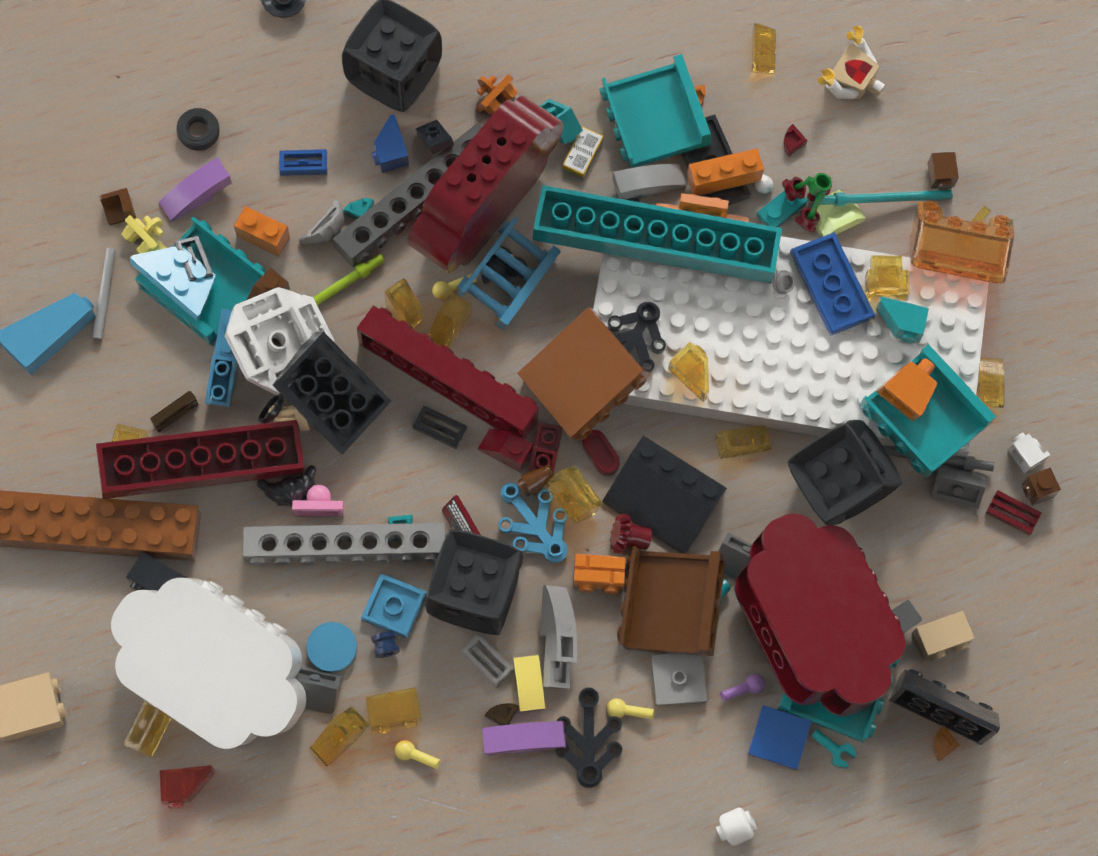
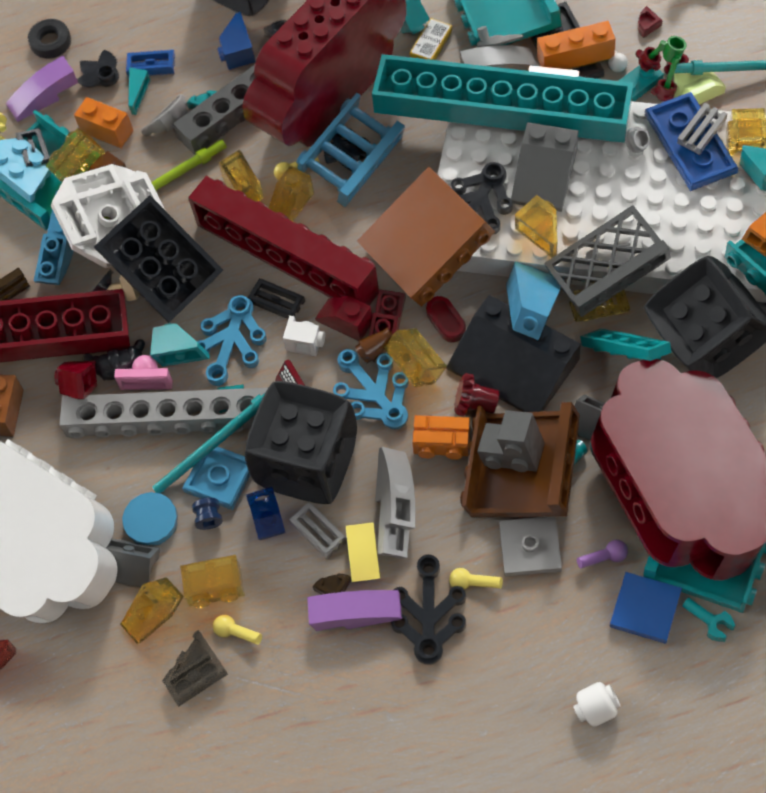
camera: 15 degrees right, 10 degrees down
(238, 274) = (74, 155): none -> clear yellow brick
(249, 168) = (99, 72): none -> black plate
(255, 509) = (76, 378): none -> dark red slope
(293, 186) = (138, 85): none -> teal piece
(346, 475) = (175, 346): none -> teal slope
(381, 793) = (193, 671): none -> clear smoke wing
(398, 465) = (231, 336): none -> dark azure plant
(433, 541) = (208, 446): none -> teal bar
(440, 647) = (266, 514): none -> clear blue bracket
(468, 469) = (303, 337): none -> white brick
(645, 160) = (494, 40): none -> light grey bar
(665, 587) = (512, 444): none -> dark grey brick
(683, 442) = (530, 298): none -> dark azure slope
(696, 308) = (545, 164): none -> dark grey slope
(764, 425) = (623, 275): none -> dark grey fence
(768, 492) = (625, 344): none -> teal plate
(853, 259) = (711, 113): none -> light grey tile

